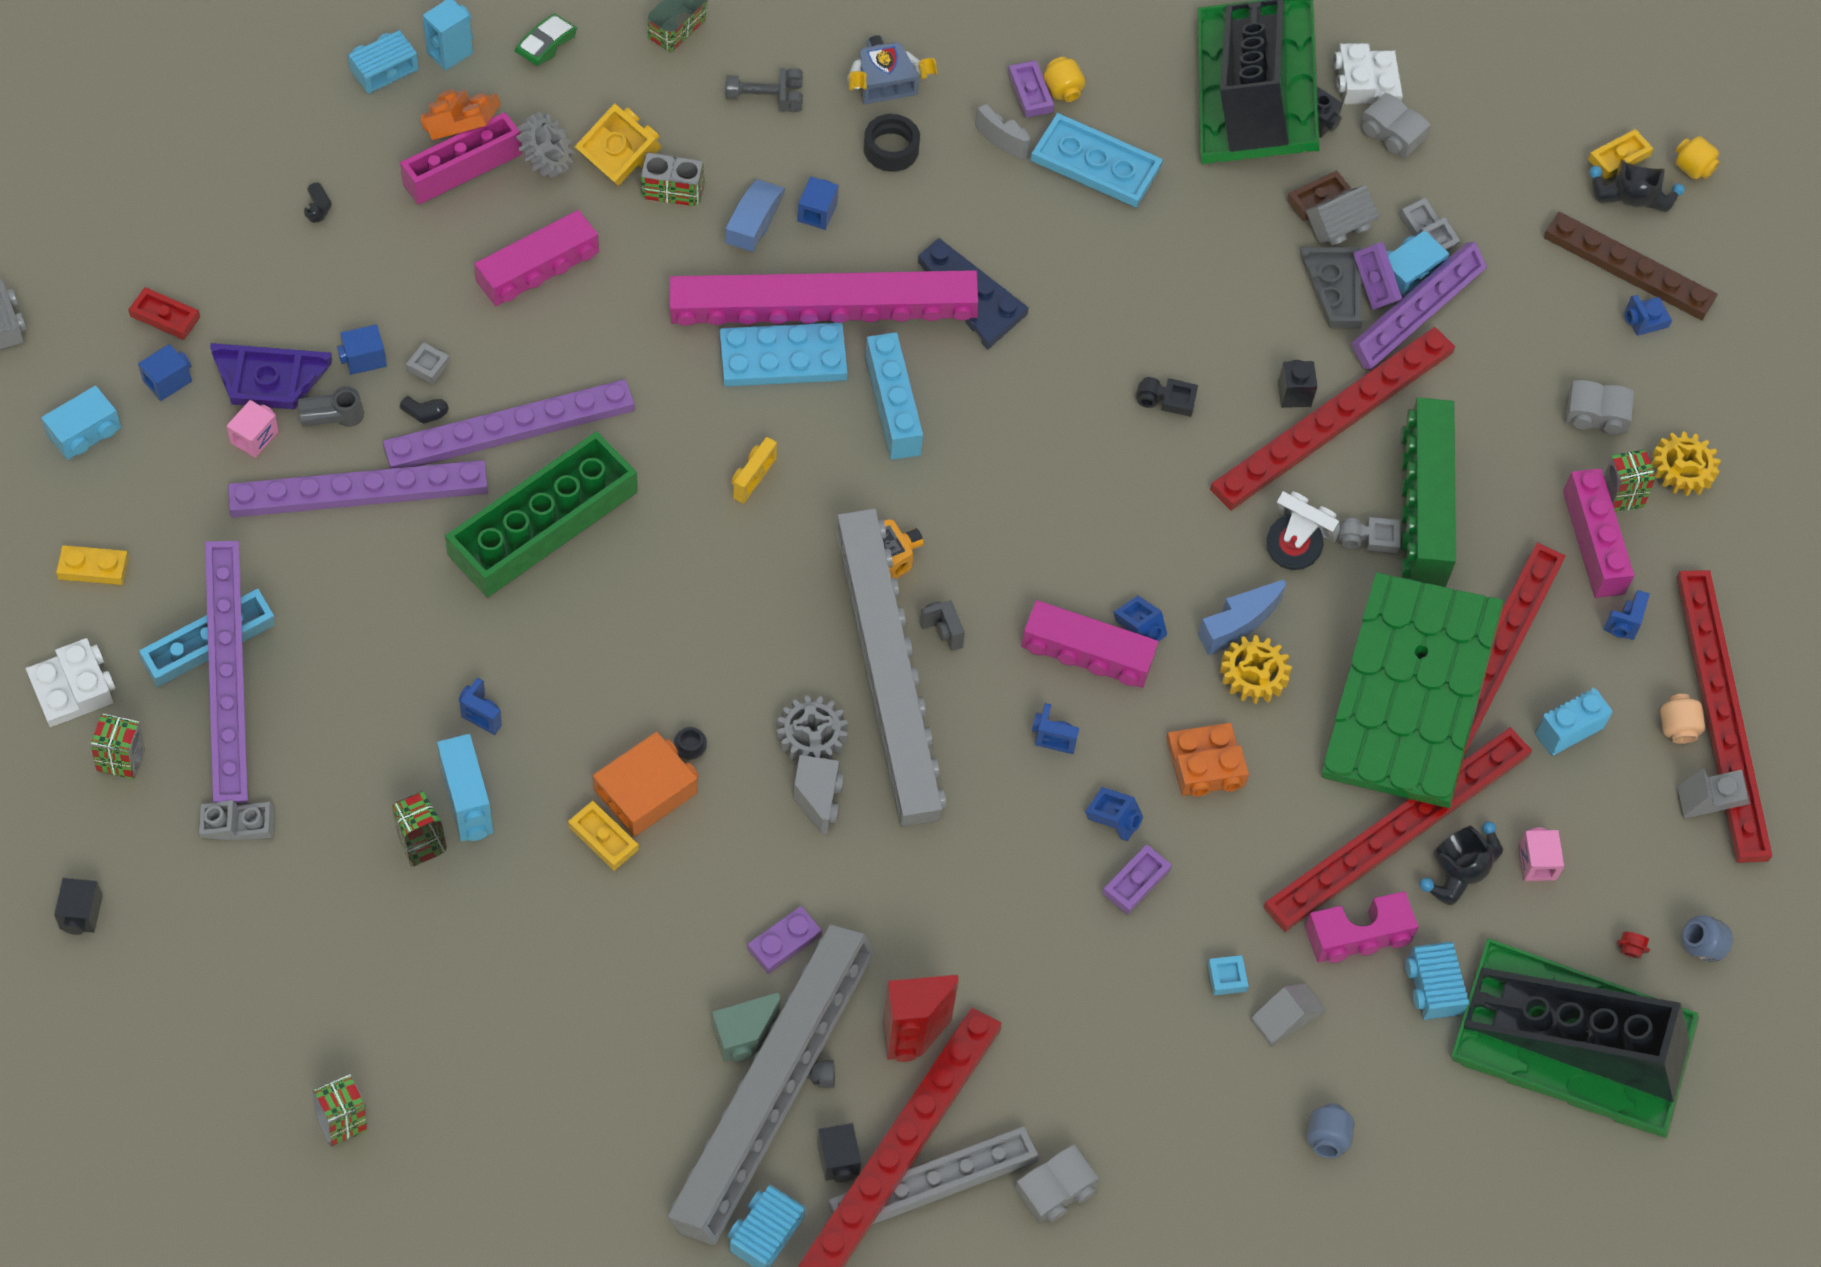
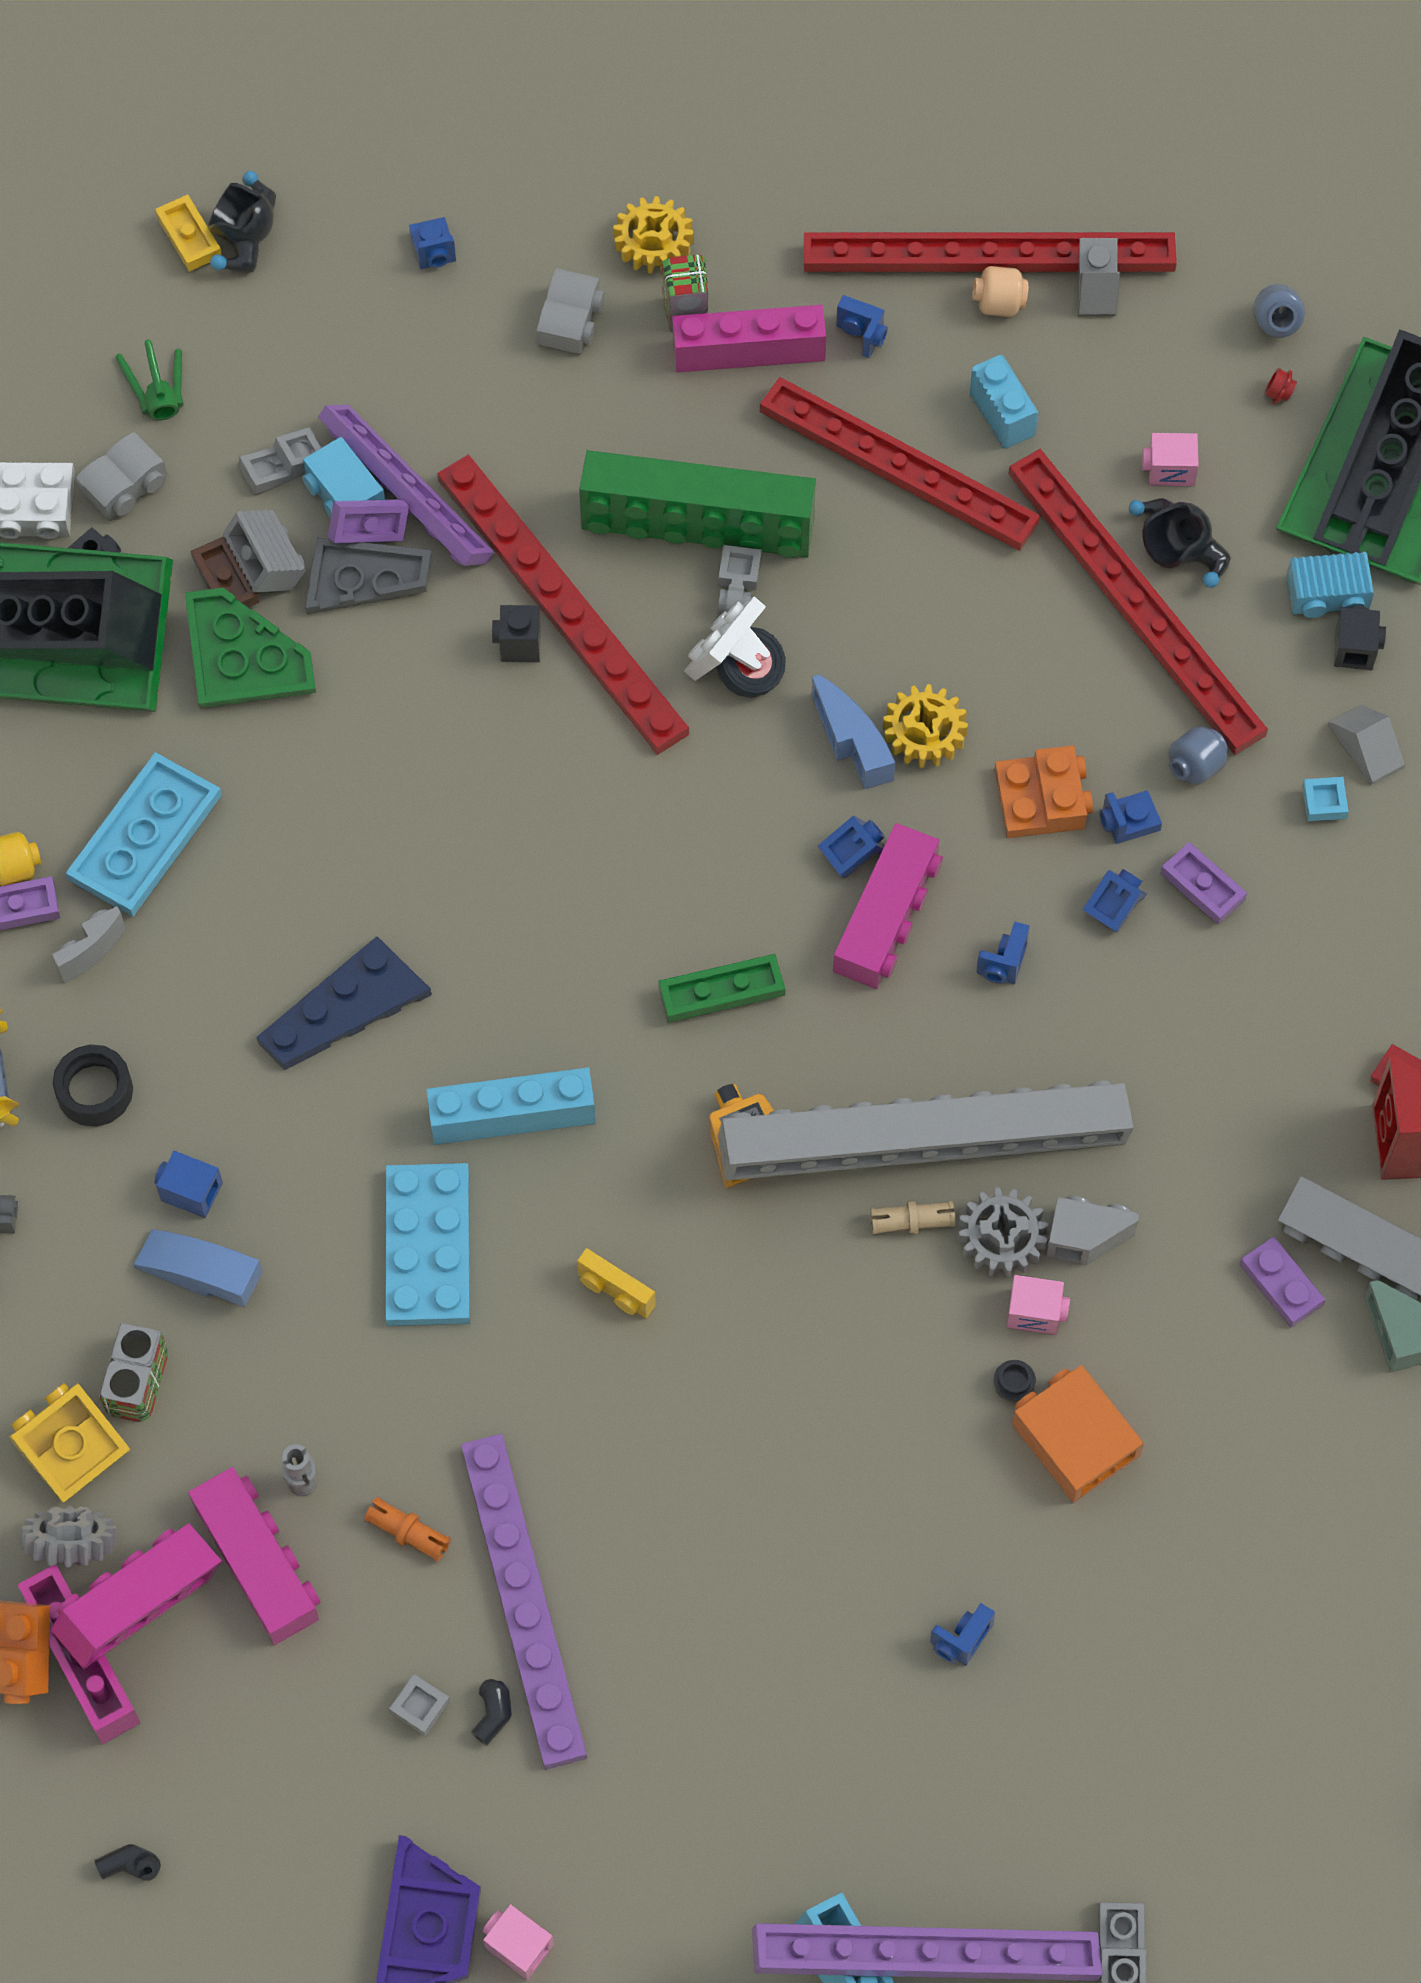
camera: 80 degrees left, 5 degrees up
(331, 408) = (490, 1839): dark grey piece -> none
(357, 488) = (615, 1803): medium lavender plate -> none
(362, 349) = (394, 1793): blue brick -> none
(419, 828) = (1152, 1705): piece -> none
(465, 788) = (1095, 1646): medium azure brick -> none
(498, 178) = (135, 1594): none -> dark pink brick
(541, 514) = (681, 1550): green brick -> none
(560, 351) = (407, 1529): none -> orange pin
(596, 273) = (304, 1466): none -> light grey pin
(603, 835) = (1146, 1487): yellow plate -> none
(751, 754) = (1037, 1305): none -> bright pink brick
(823, 297) = (353, 1185): dark pink brick -> none
(823, 669) = (912, 1217): none -> tan pin
(947, 622) = (855, 1063): dark grey bracket -> none
(1007, 533) = (721, 988): none -> green plate
(1177, 395) = (524, 775): black plate -> none
(1193, 824) = (1129, 816): none -> blue bracket
(1254, 207) = (242, 653): none -> green plate
(1254, 872) = (1198, 755): none -> sand blue head
(1336, 937) = (1261, 624): dark pink arch -> none
(1388, 1002) = (1358, 638): none -> black brick
(1412, 689) = (980, 549): green piece -> none
(1469, 145) = (160, 399): none -> green plant
(1630, 265) = (354, 251): reddish brown plate -> none
(1697, 158) = (206, 149): yellow head -> none

